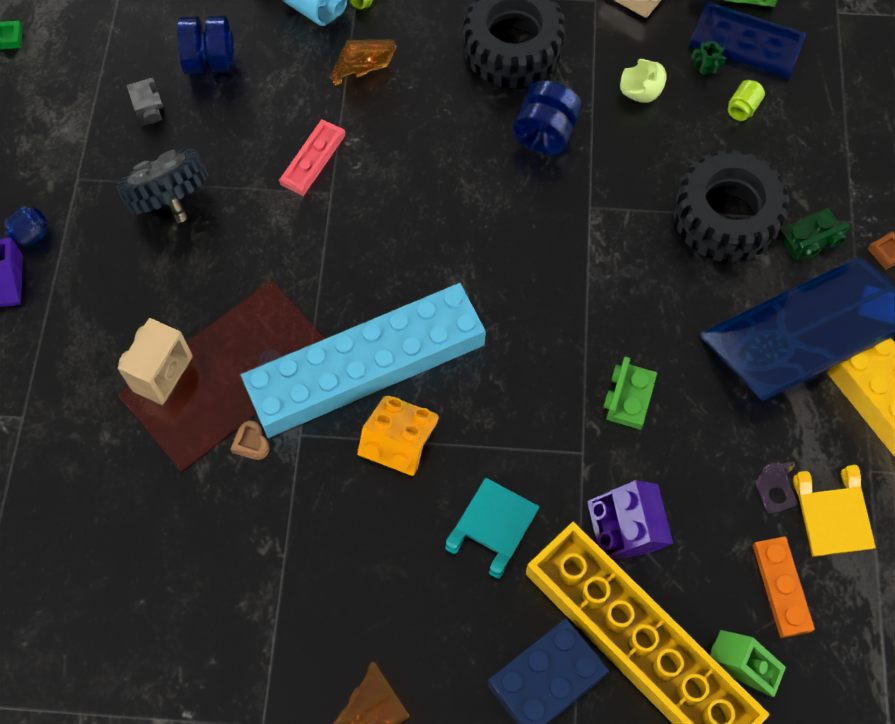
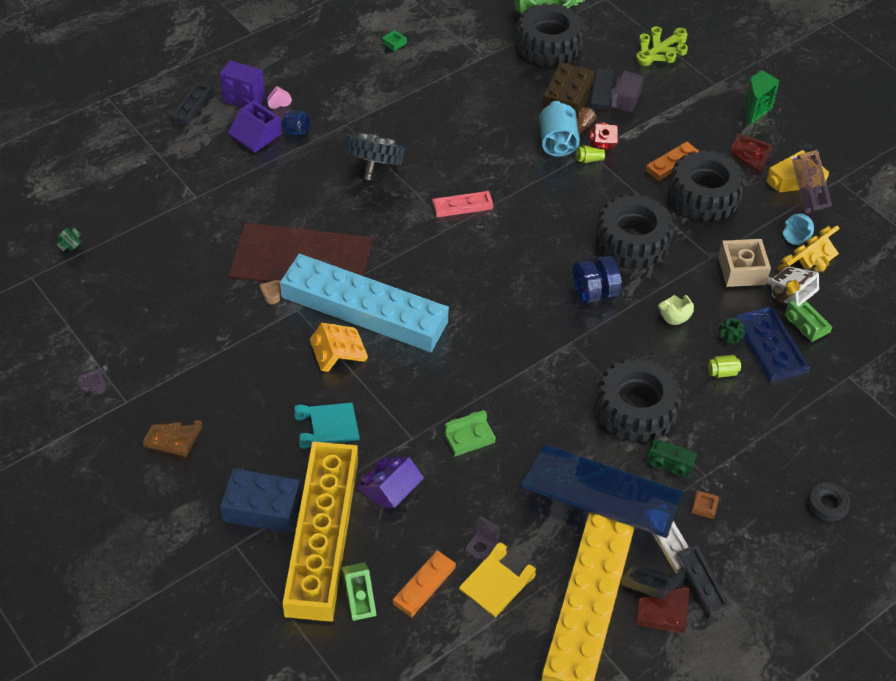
camera: 45 degrees right, 15 degrees down
(145, 101) = (416, 115): flat silver brick -> none
(155, 361) = (272, 218): tan brick -> none
(213, 43) = (473, 112): clear blue wheel -> none
(362, 57) = (544, 179): clear orange wing -> none

